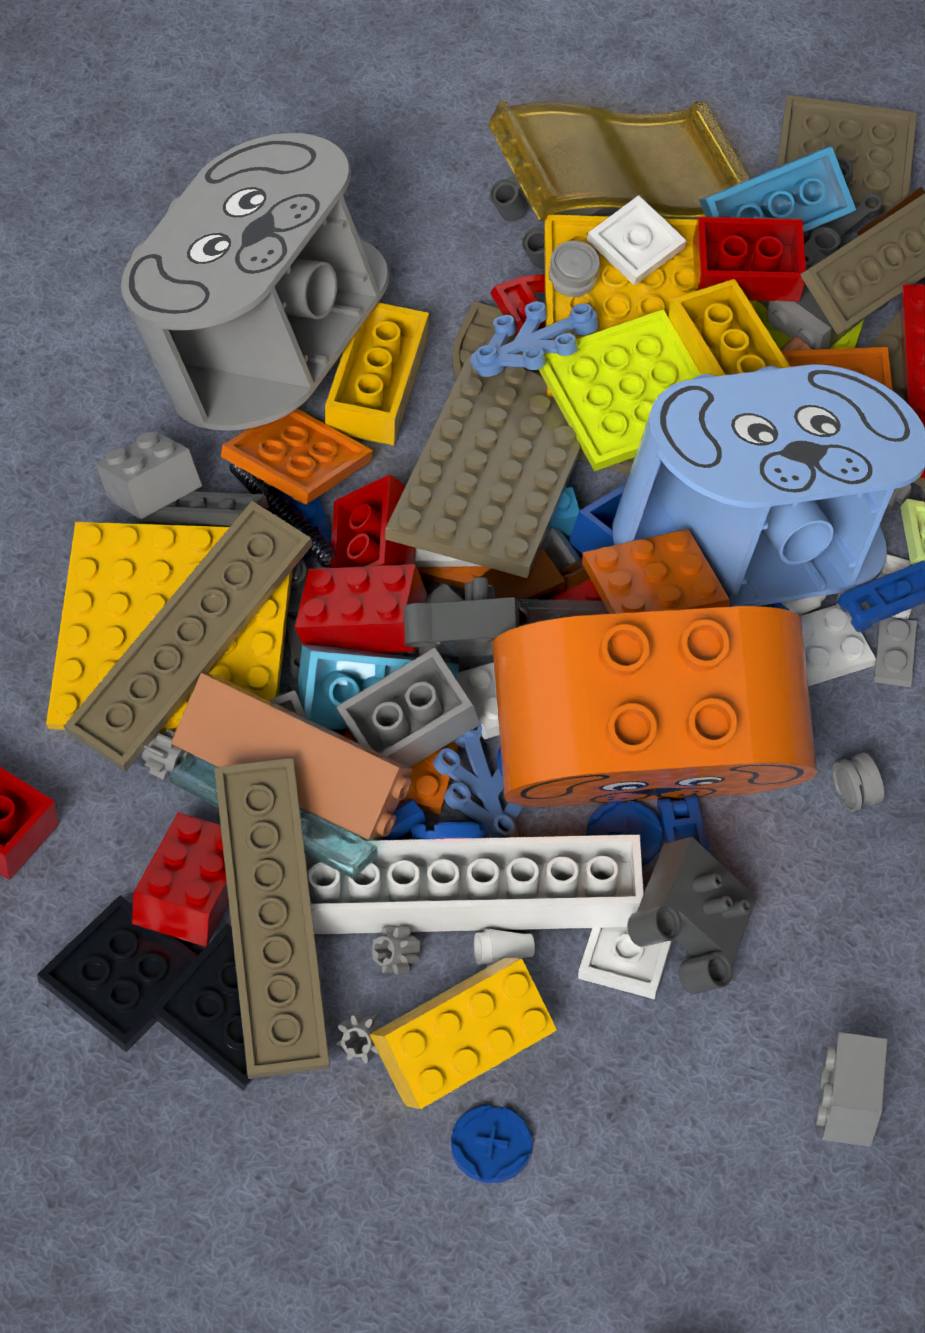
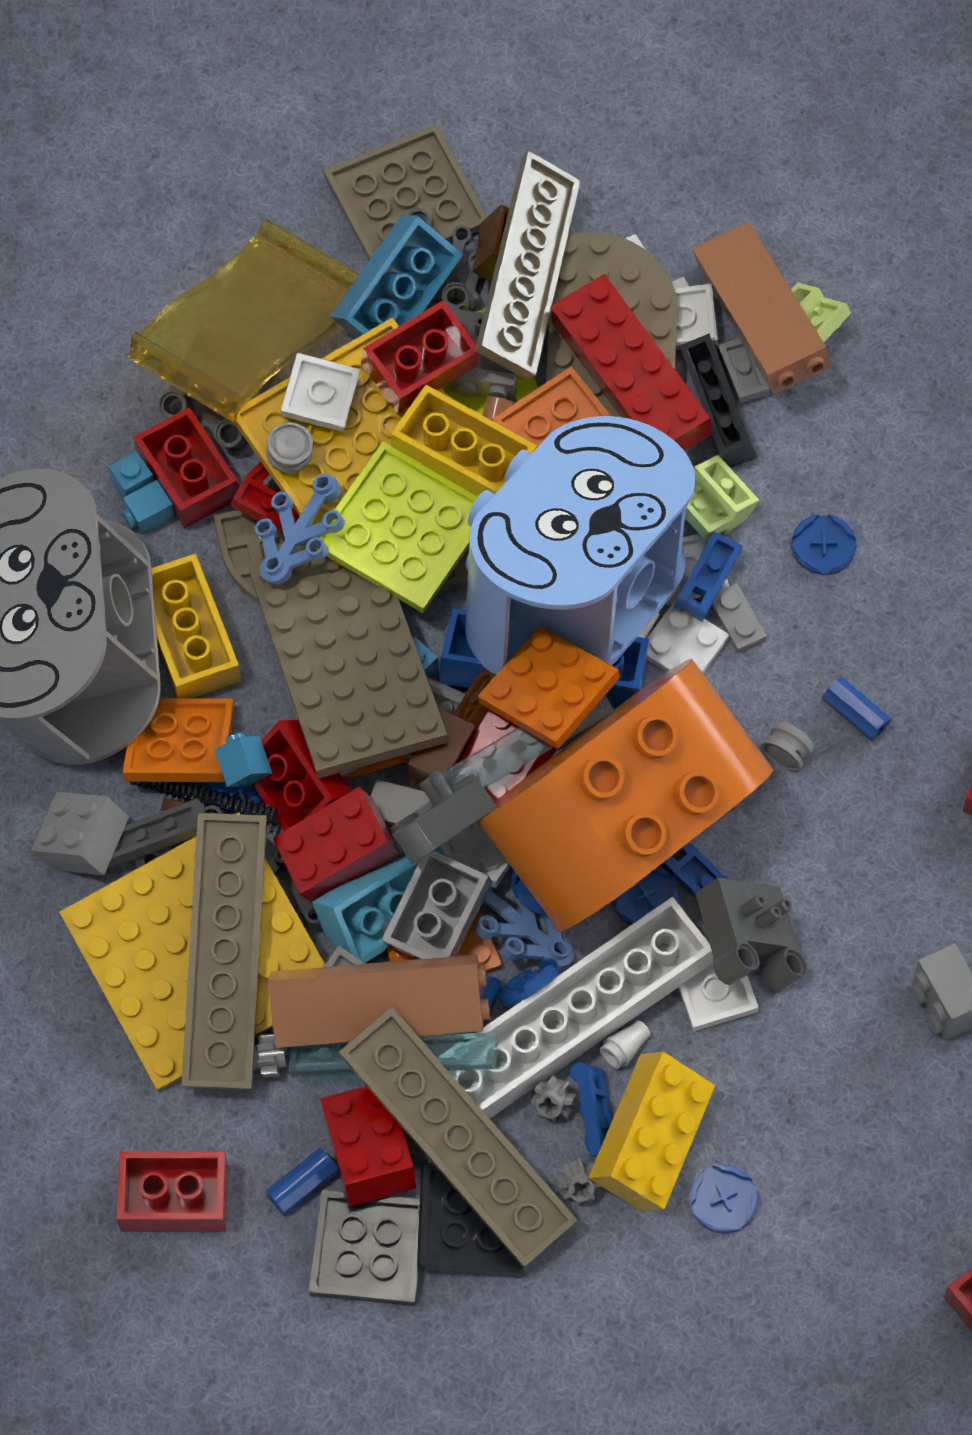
camera: 30 degrees left, 10 degrees up
(105, 878) = (302, 1181): none -> blue axle
(334, 494) = (243, 760): none -> dark azure brick
(421, 264) = (147, 508): none -> dark azure brick
(425, 234) = (130, 474): none -> dark azure brick
(433, 973) = (594, 1104): none -> blue plate
(478, 247) = (187, 466): none -> red brick

